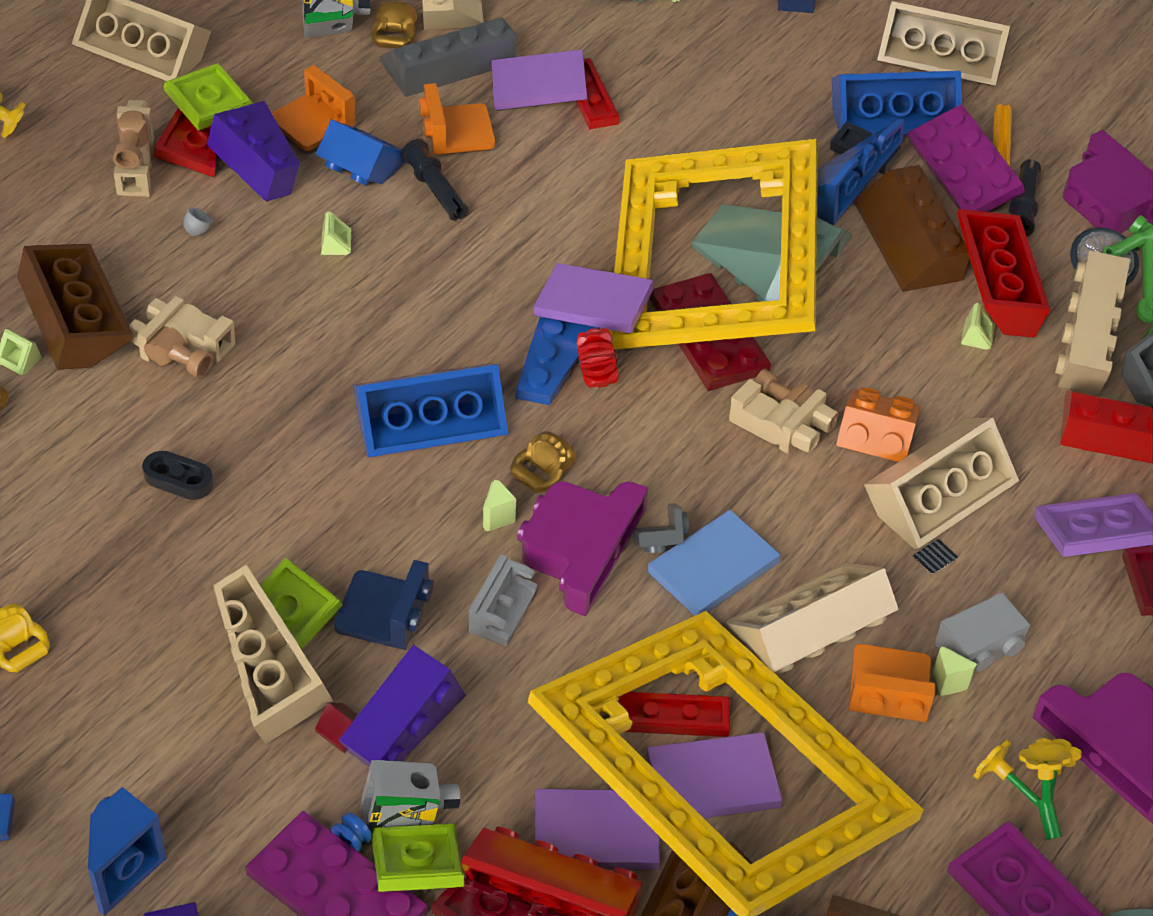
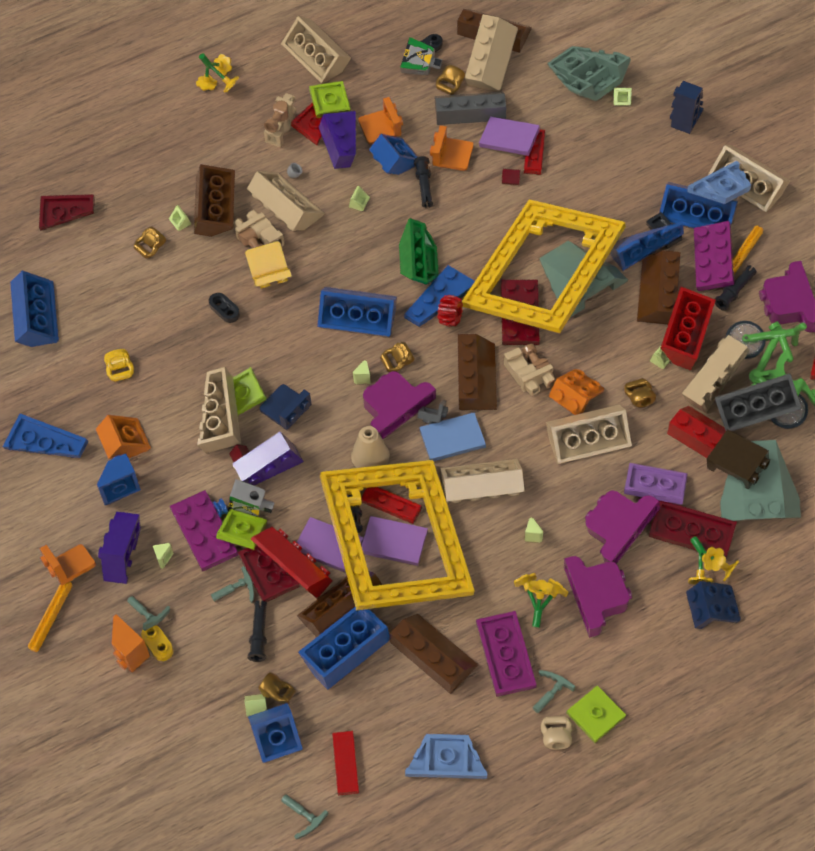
camera: 30 degrees right, 10 degrees up
(82, 767) = (122, 436): none -> orange slope
(201, 271) = (284, 200): none -> tan slope
(228, 378) = (267, 264): none -> yellow bracket
(486, 286) = (418, 253): none -> green wedge
(502, 601) = (341, 422): light grey hinge -> none
(574, 136) = (511, 176): none -> dark red slope
(584, 626) = (369, 449): none -> tan cone
(593, 298) = (464, 277): medium lavender tile -> none
(693, 447) = (476, 373): none -> reddish brown slope
(891, 683) = (501, 525): orange bracket -> none
(927, 52) = (722, 185): none -> medium blue wing
(935, 556) = (565, 470): sticker -> none
(984, 400) = (642, 396): none -> pearl gold piece
(985, 631) = (560, 518): light grey brick -> none
(1086, 606) = (619, 522): none -> magenta brick

